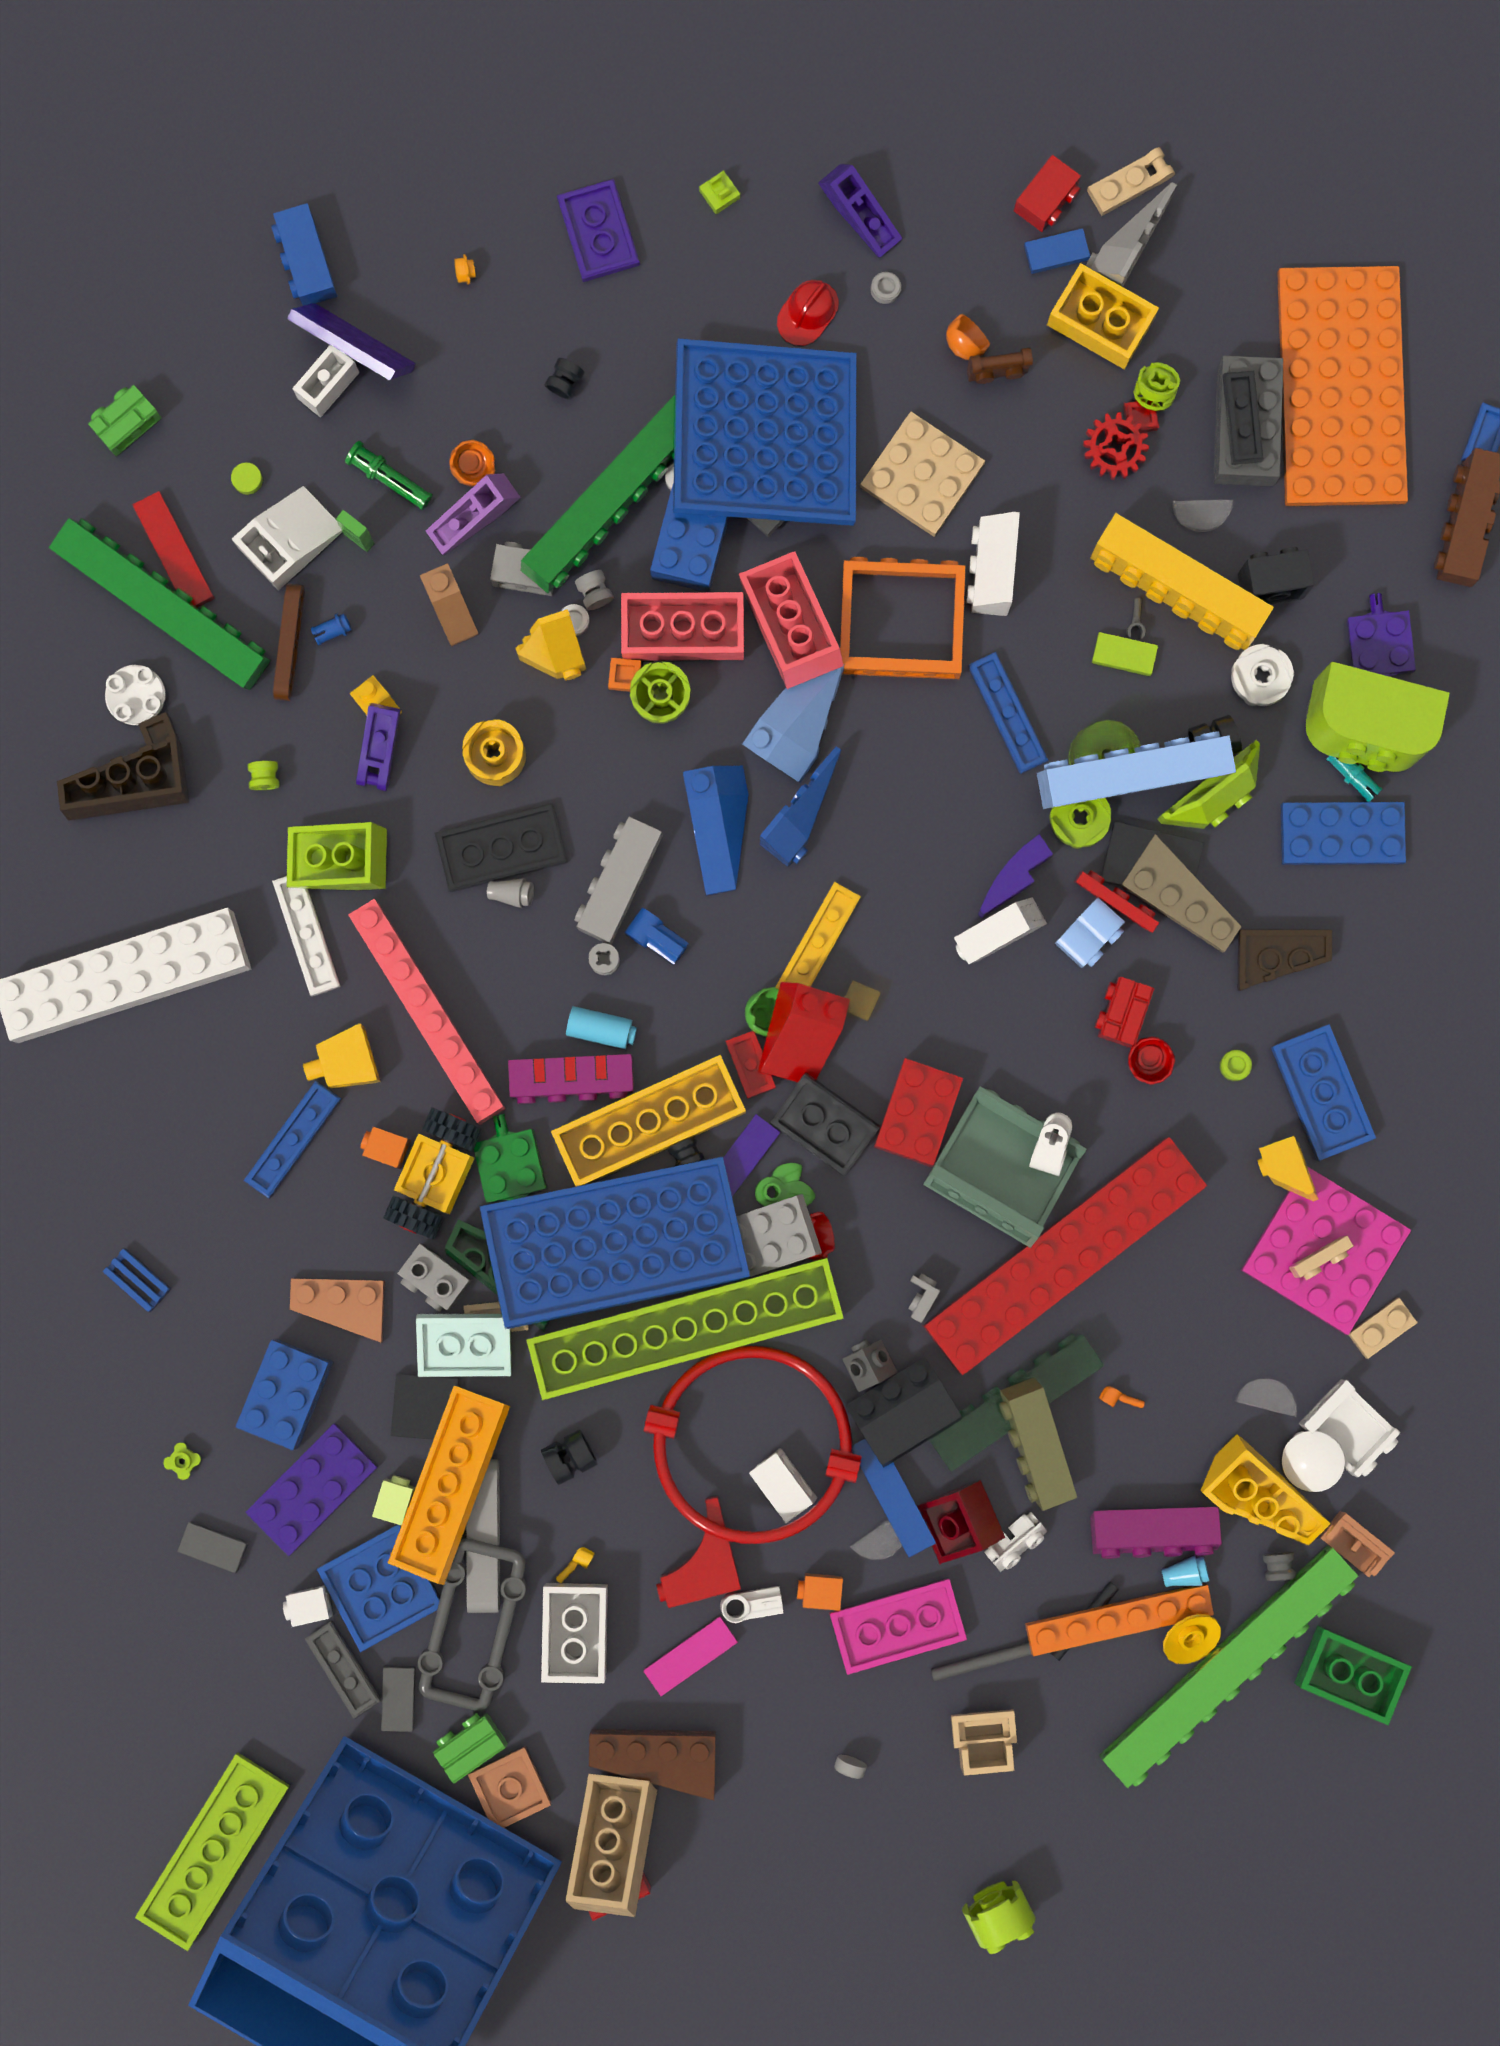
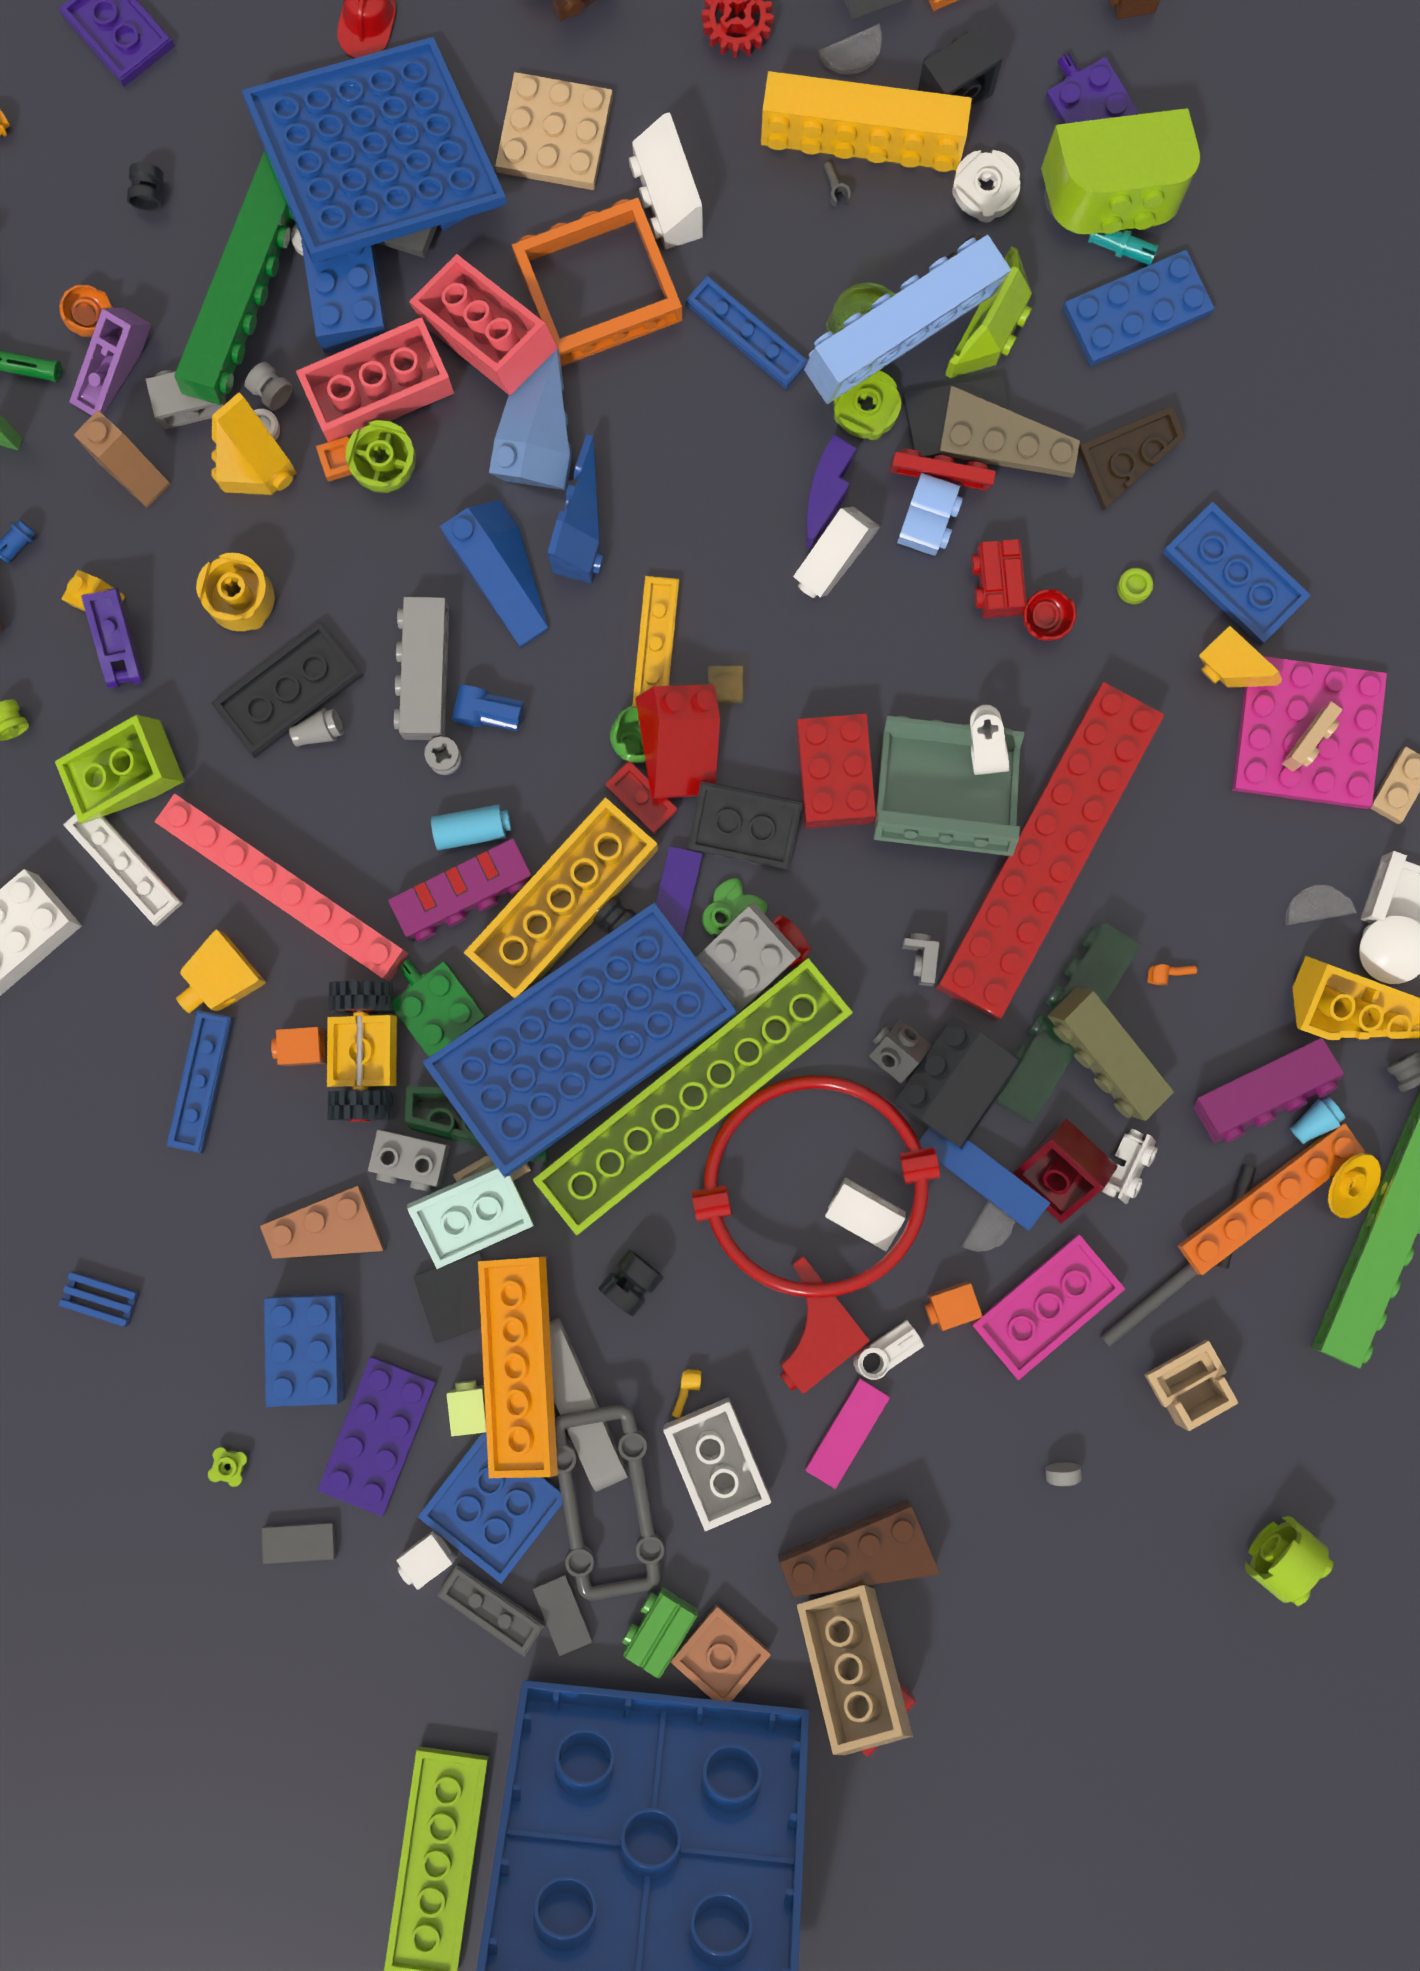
camera: 25 degrees left, 0 degrees up
(1124, 654) = (838, 223): lime tile -> none

